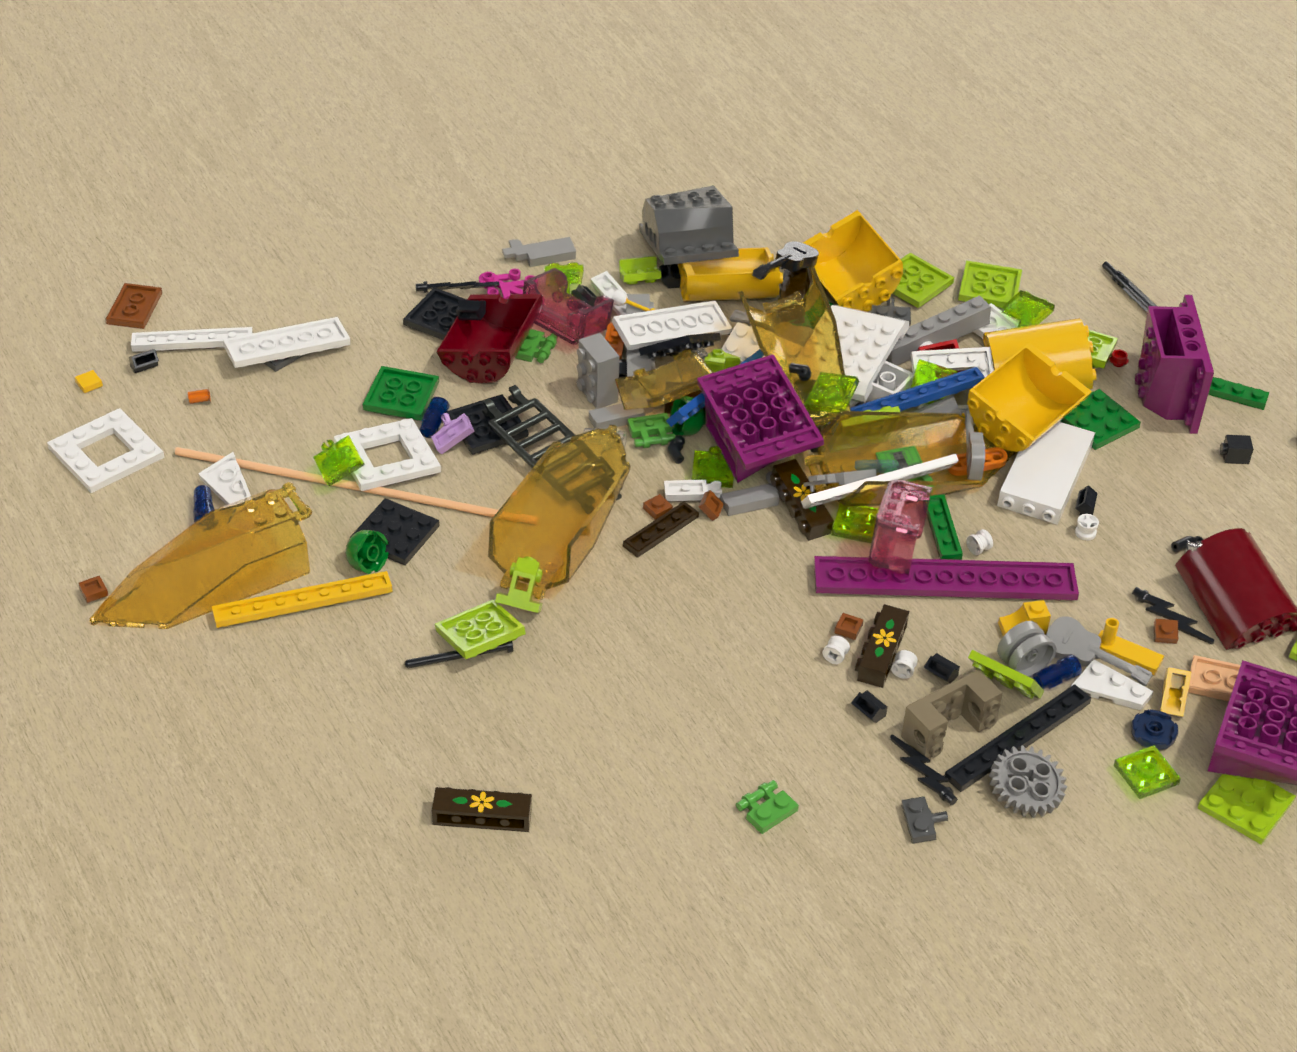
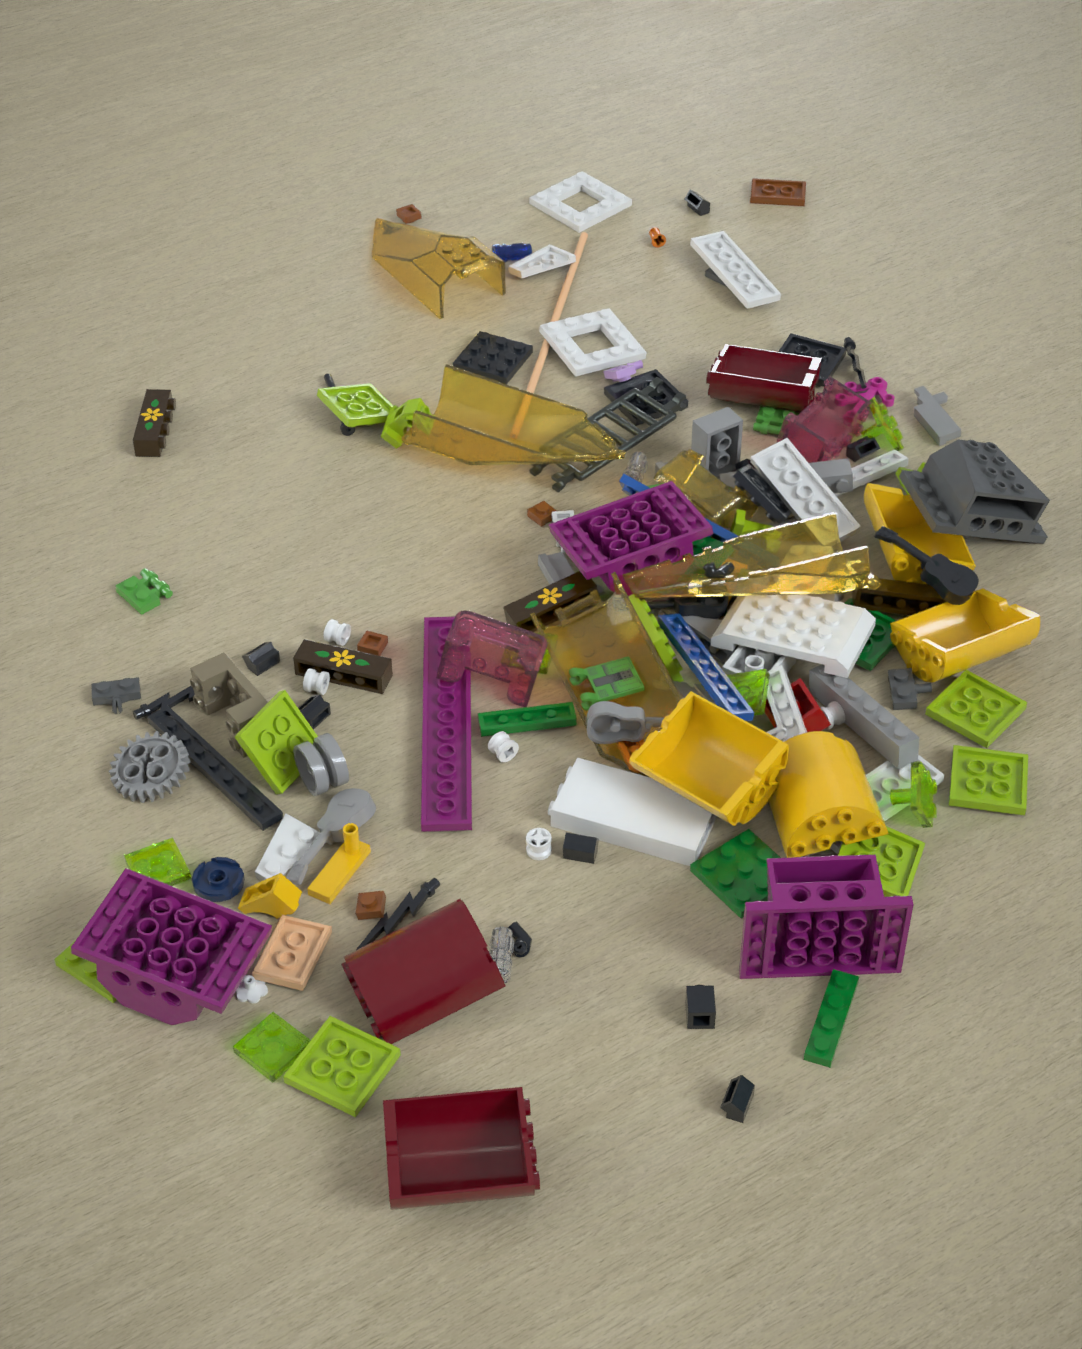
camera: 90 degrees right, 0 degrees up
(88, 381) = (667, 182): yellow tile -> none
(185, 339) = (733, 221): white plate -> none
(301, 599) = (401, 315): yellow plate -> none
(338, 460) = (566, 305): clear neon green plate -> none
(367, 551) = (453, 335): green cylinder -> none
(401, 393) = (681, 343): green plate -> none
(432, 417) = (650, 362): clear blue axle -> none
(471, 309) = (786, 353): black piece -> none
(620, 298) = (833, 455): white hinge -> none
(660, 529) = (511, 517): dark brown tile -> none
(711, 505) = (541, 543): dark orange plate -> none
(831, 392) = (663, 577): clear neon green plate -> none
(843, 478) = (566, 619): light grey piece -> none
(881, 466) = (596, 650): clear light blue tile -> none
(902, 474) = (564, 644): white tile -> none
(1029, 611) = (381, 782): yellow arch -> none
(1054, 674) = (303, 802): clear blue axle -> none
(1129, 287) = (1002, 941): black axle -> none

